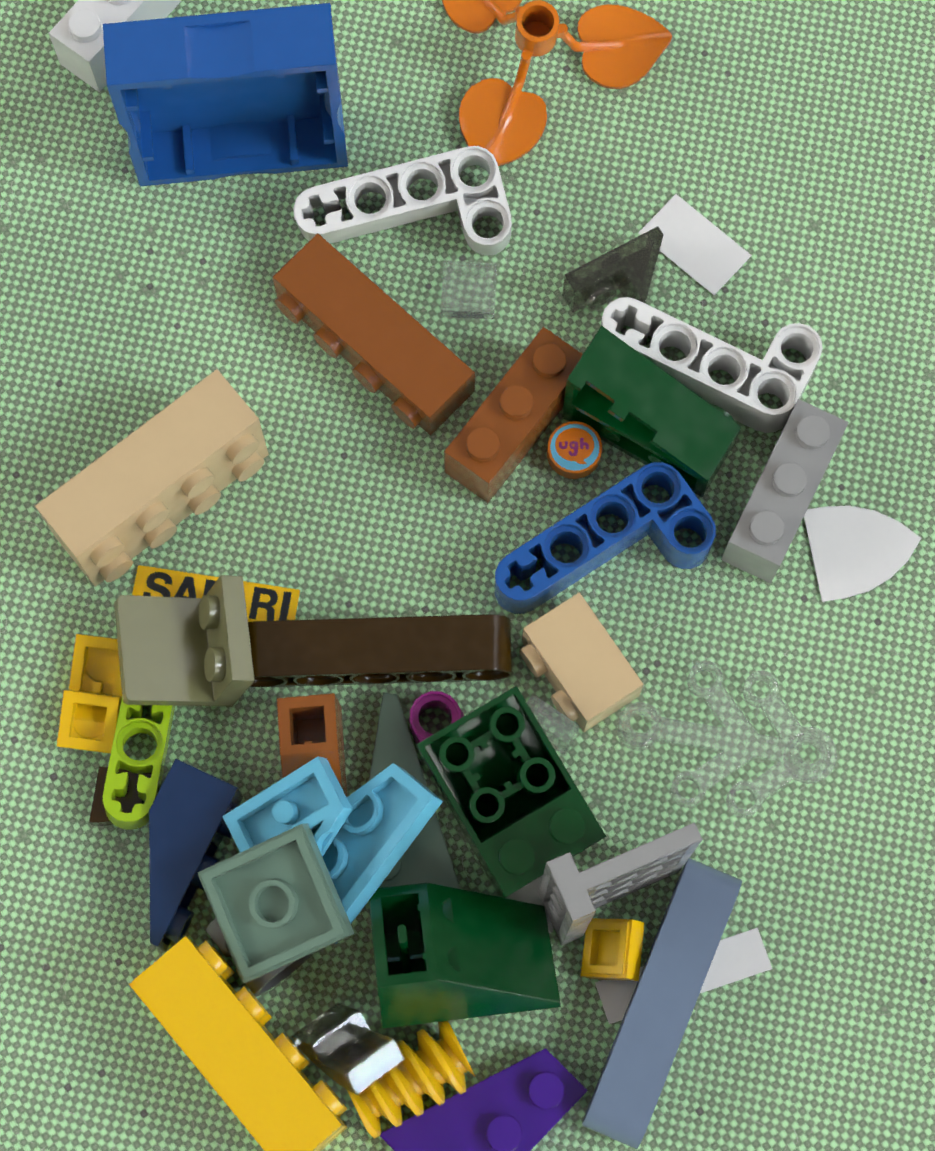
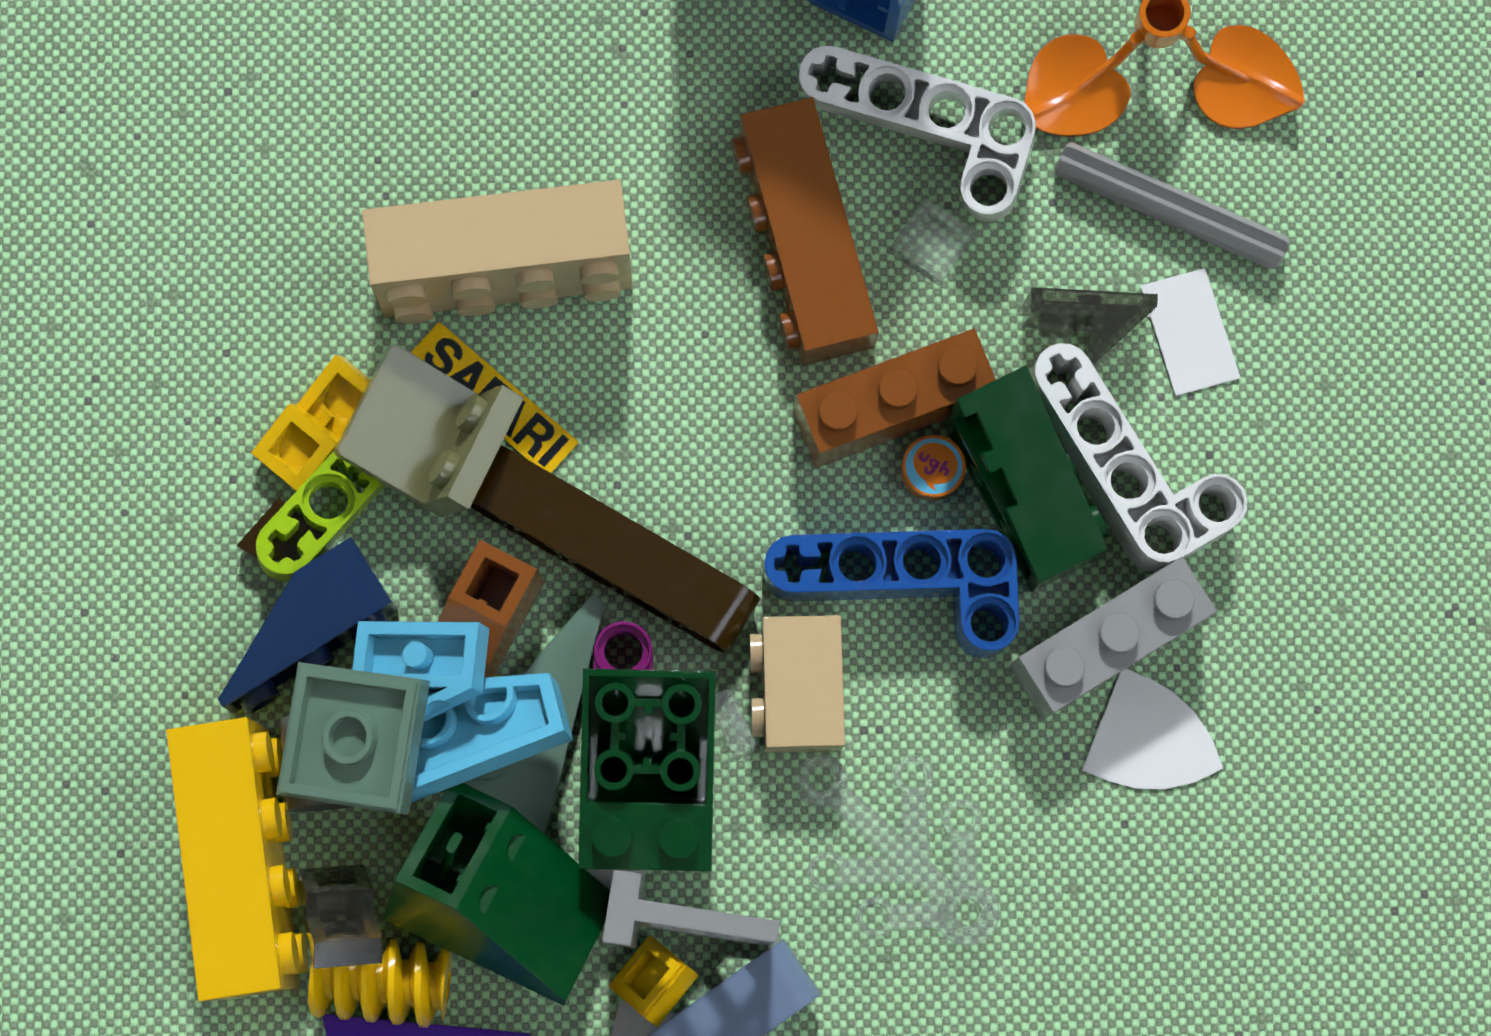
camera: 25 degrees right, 5 degrees up
(624, 162) = (1172, 206): none -> light grey axle

